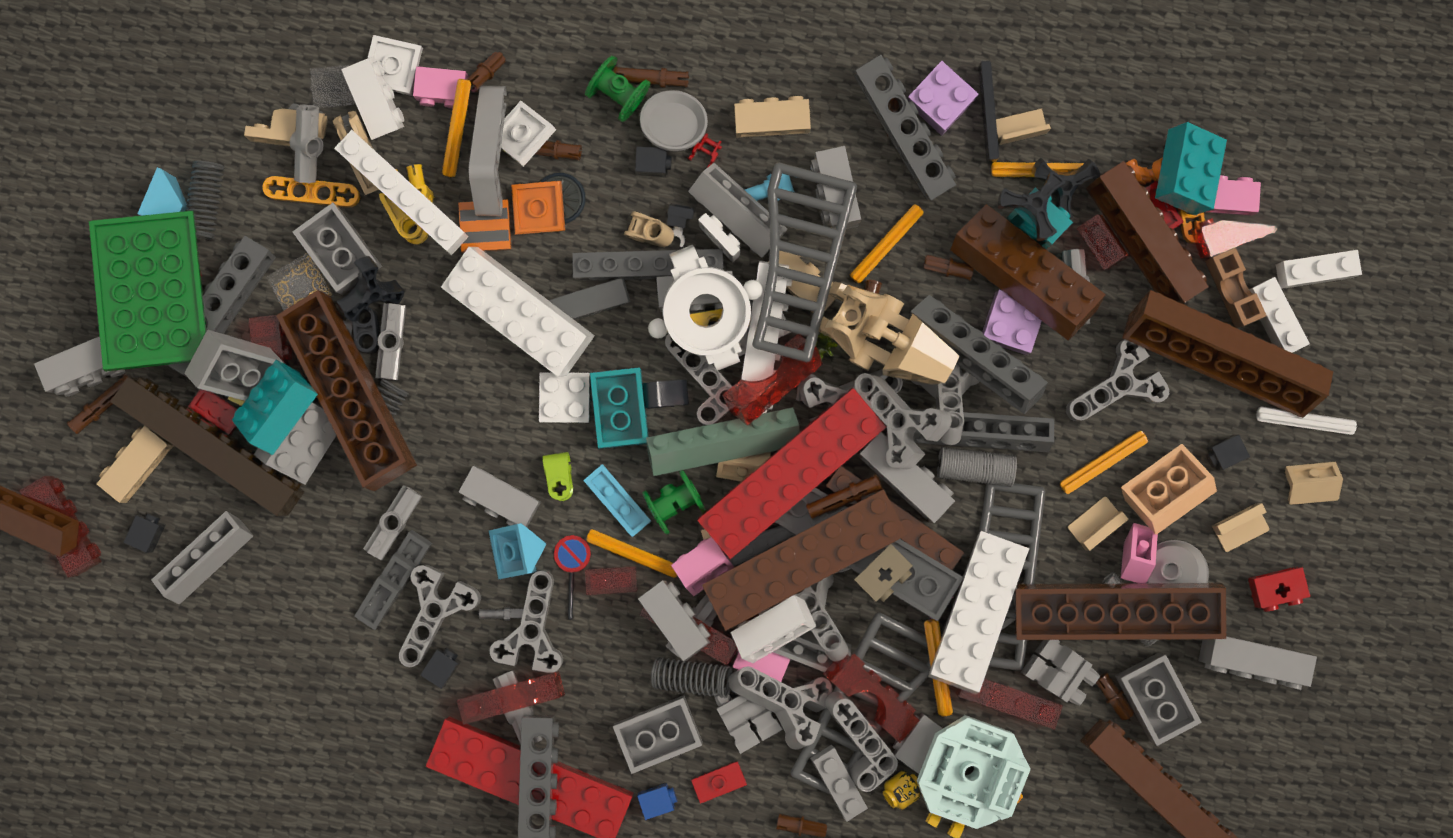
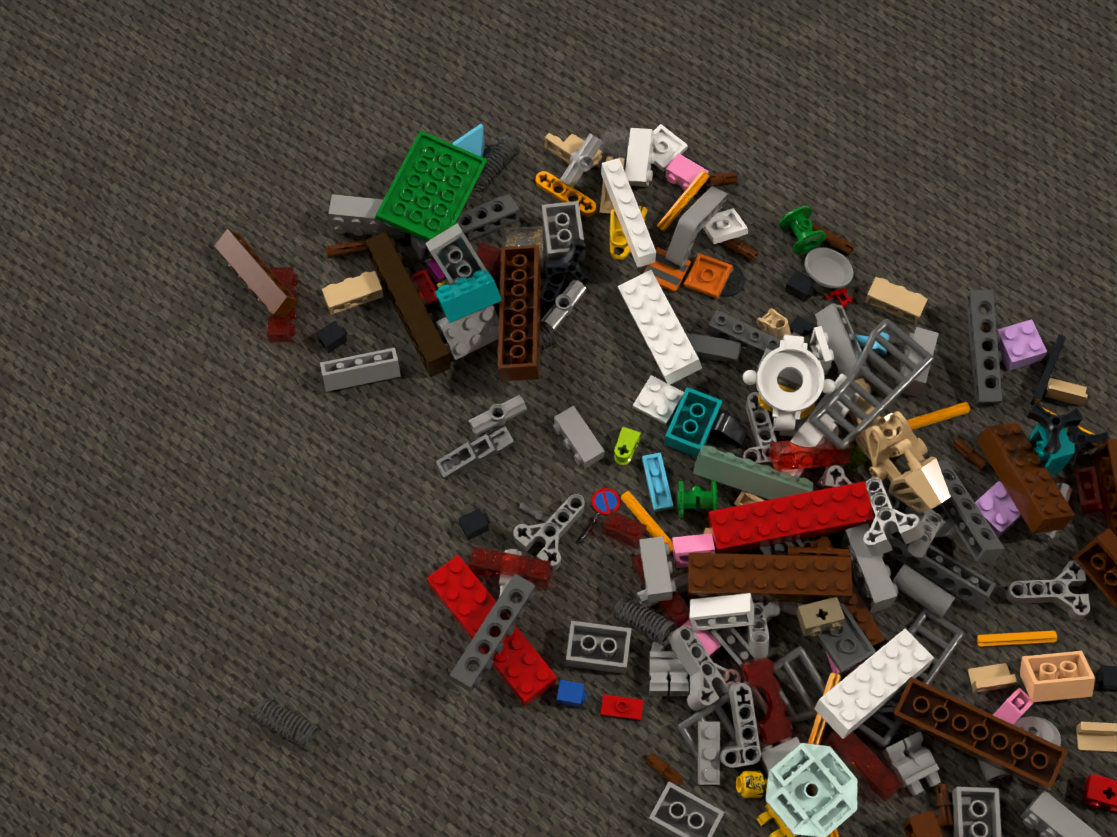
camera: 25 degrees right, 20 degrees down
(427, 595) = (504, 487): light grey beam -> none
(515, 550) = (569, 475): medium azure slope -> none

